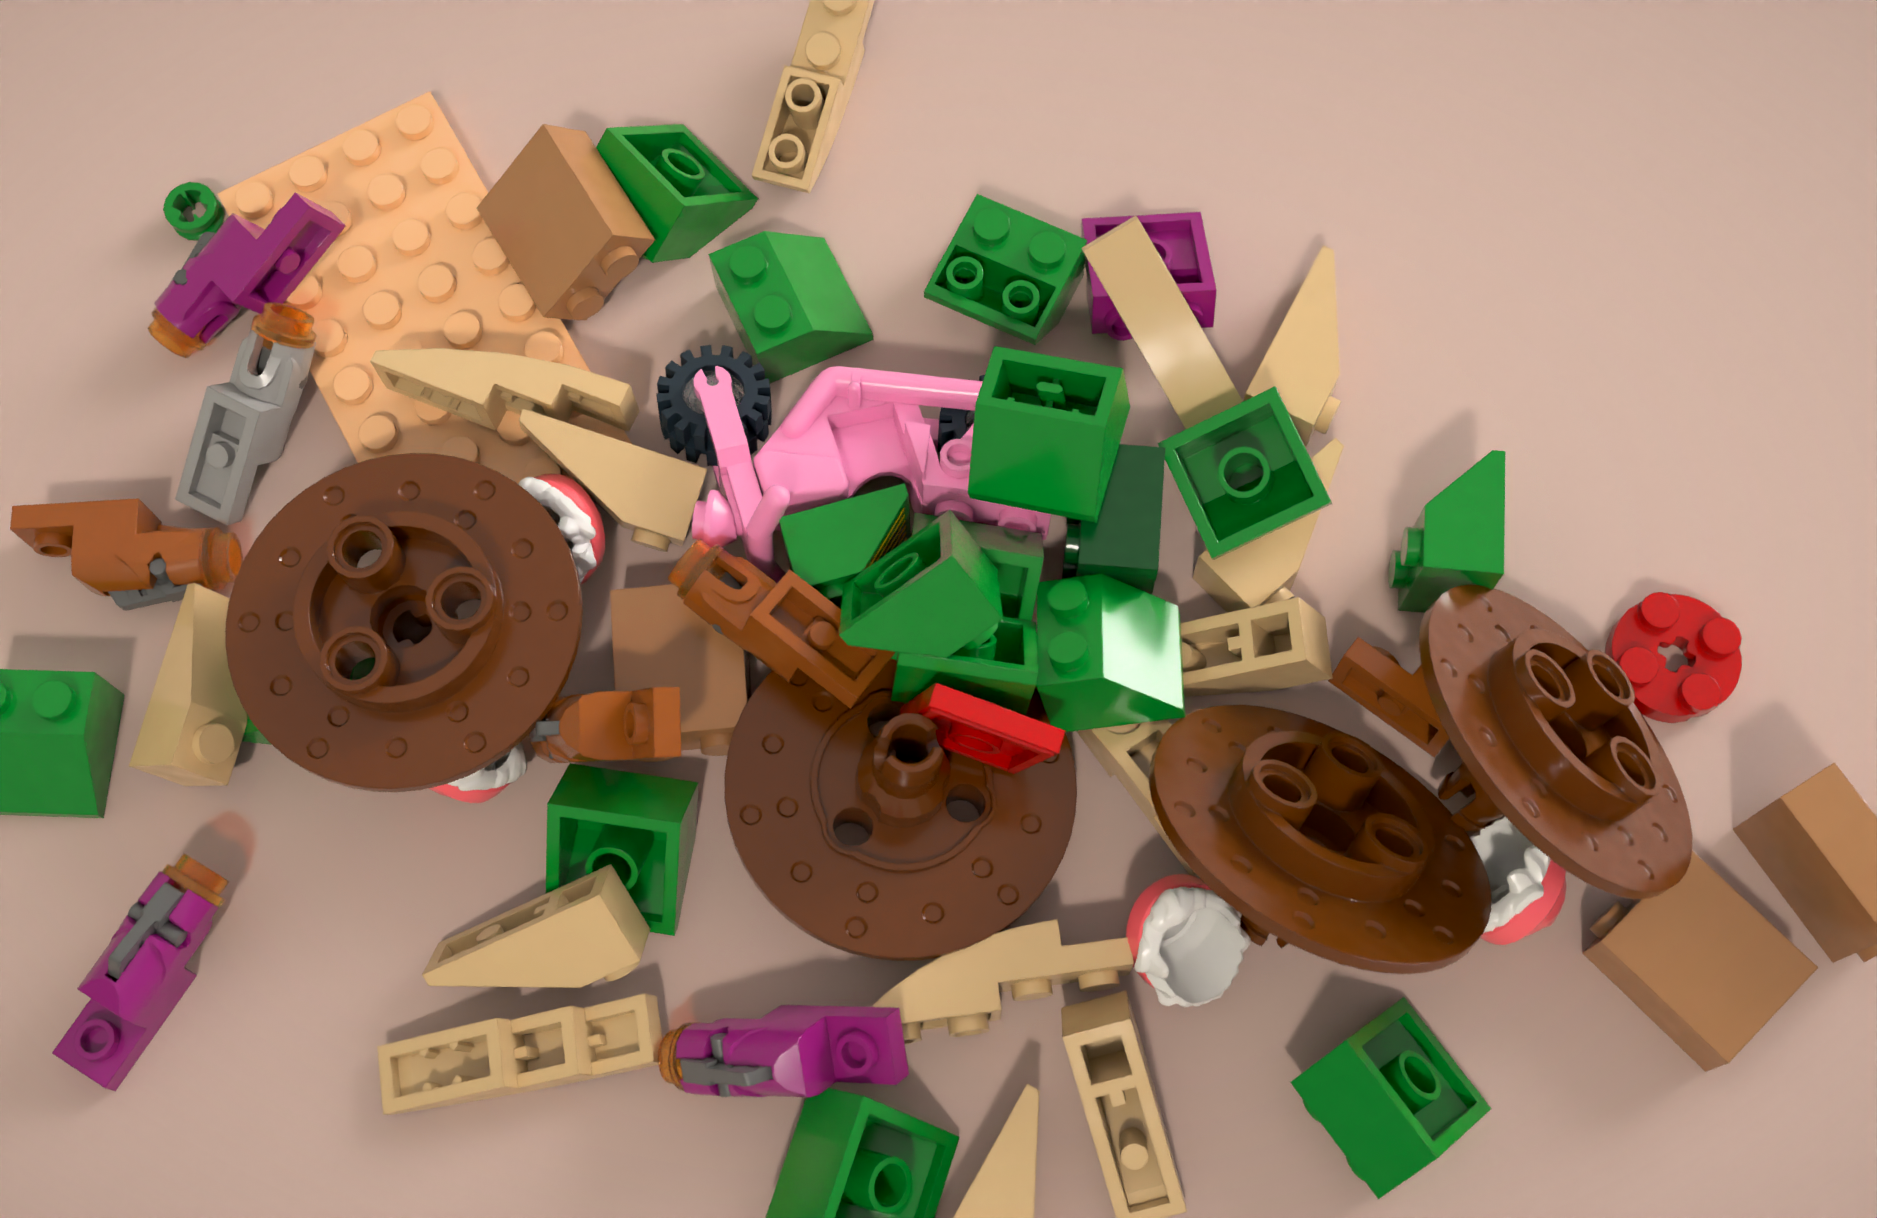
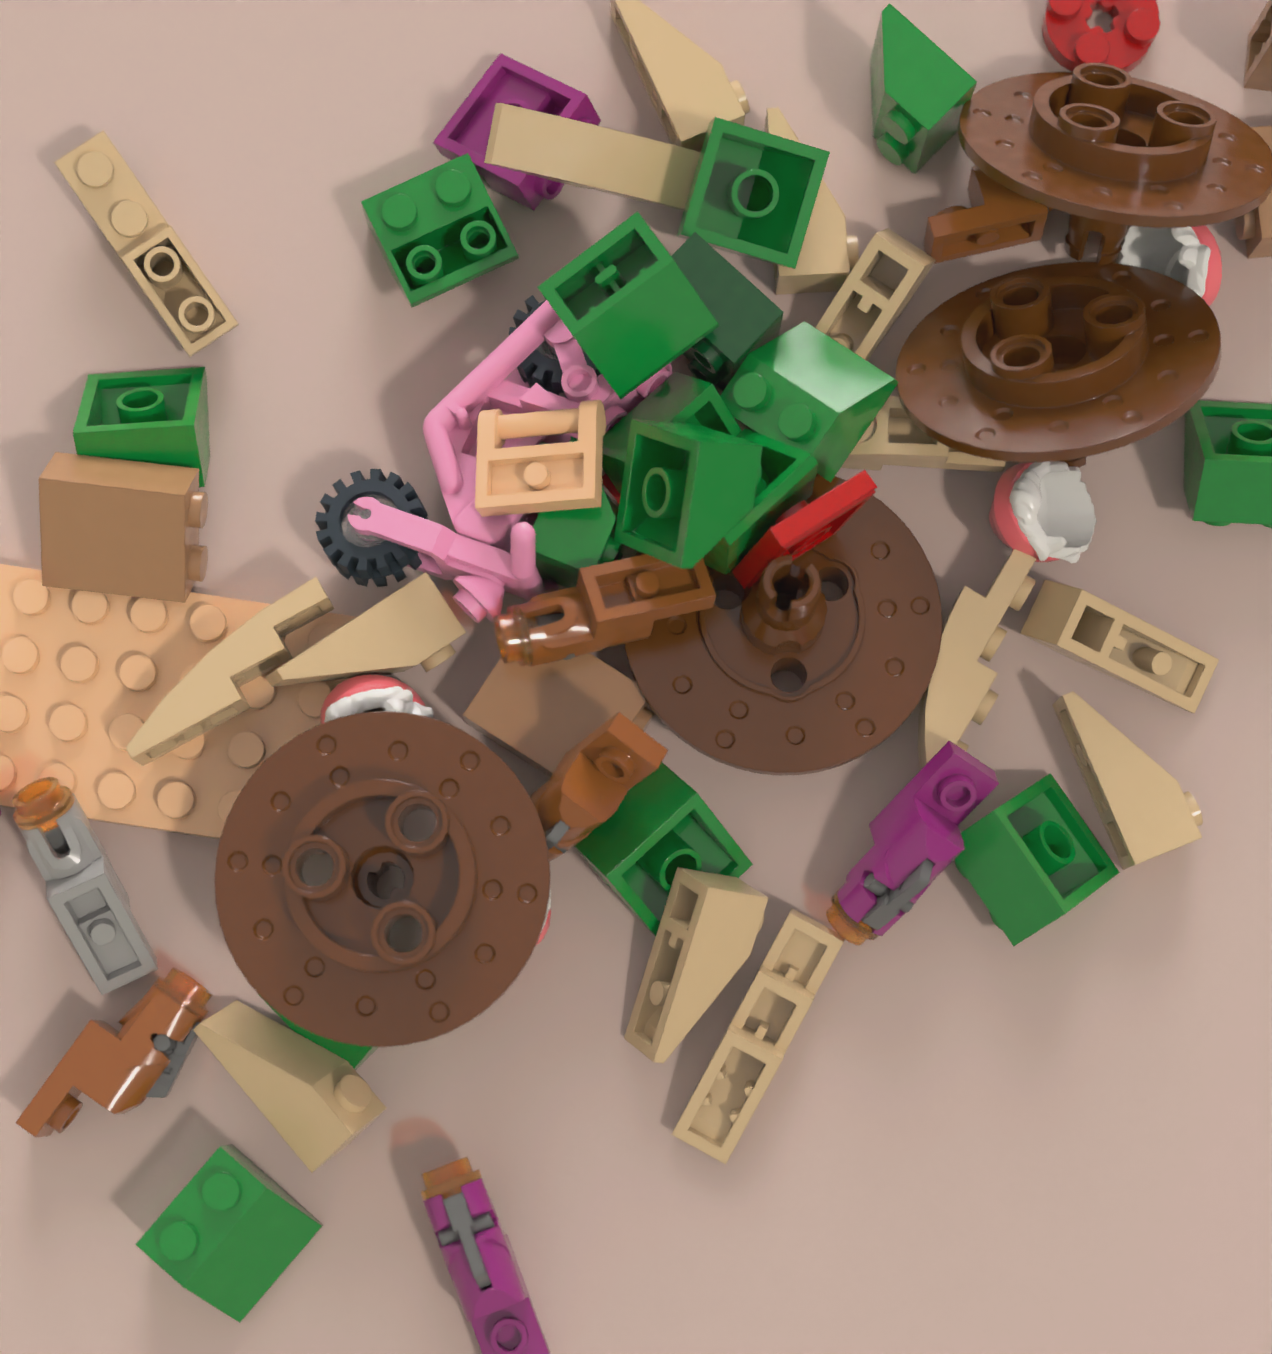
camera: 55 degrees left, 10 degrees up
(788, 301) = (319, 411): green slope -> none
(848, 482) = (539, 475): none -> light nougat plate

